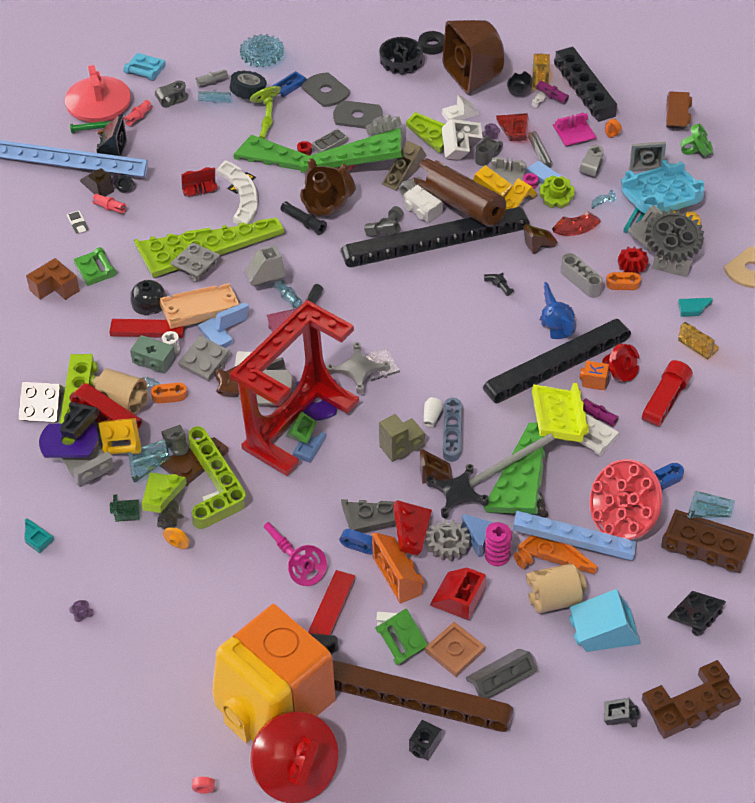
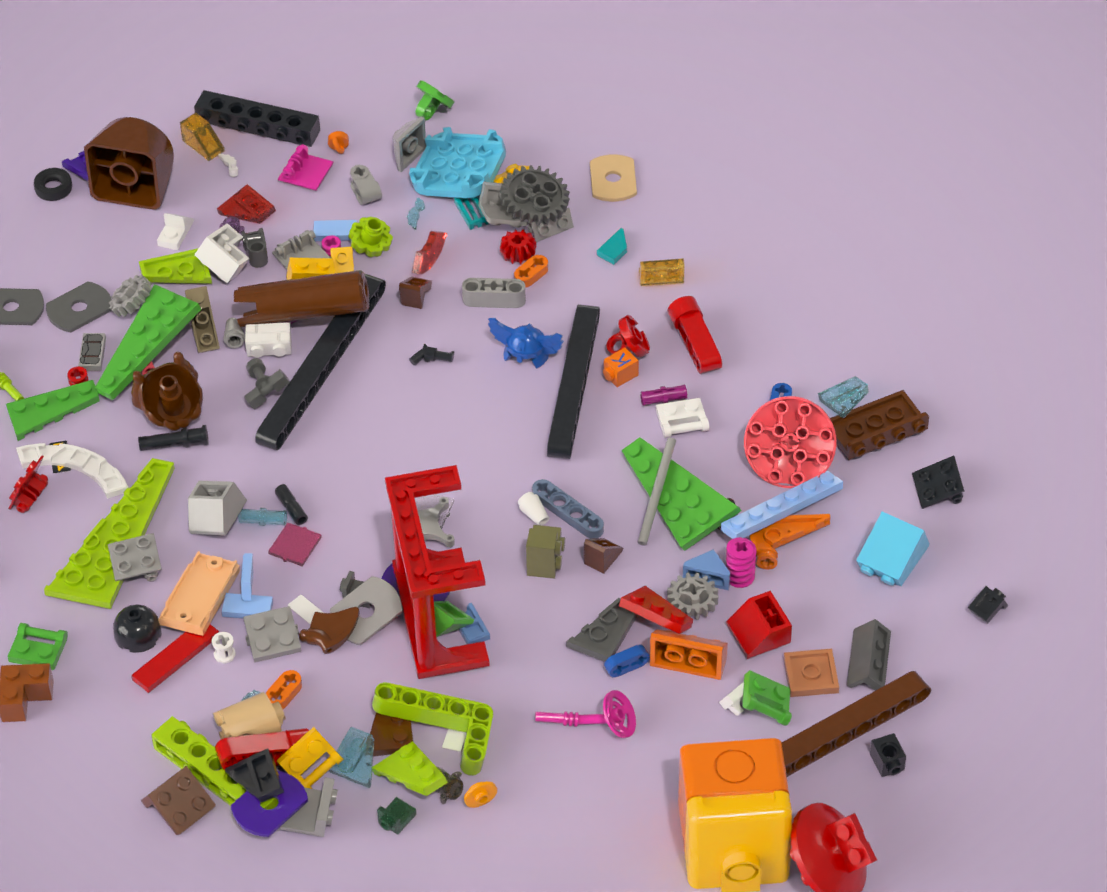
camera: 50 degrees left, 0 degrees up
(152, 354) = (221, 670): sand green brick -> none
(176, 440) = (357, 716): dark grey piece -> none
(332, 603) = (668, 720): red tile -> none
(401, 49) = (49, 212): black gear -> none
(457, 491) = (647, 551): black piece -> none
(520, 84) = (199, 161): black hair -> none
(539, 148) = (298, 210): dark grey axle -> none
(552, 92) = (223, 149): magenta pin -> none
(556, 587) = (827, 556): tan cylinder -> none
(560, 412) = (643, 416): neon yellow bracket -> none
(677, 109) = (376, 80): dark orange brick -> none
(694, 705) = (1025, 568): reddish brown bracket -> none

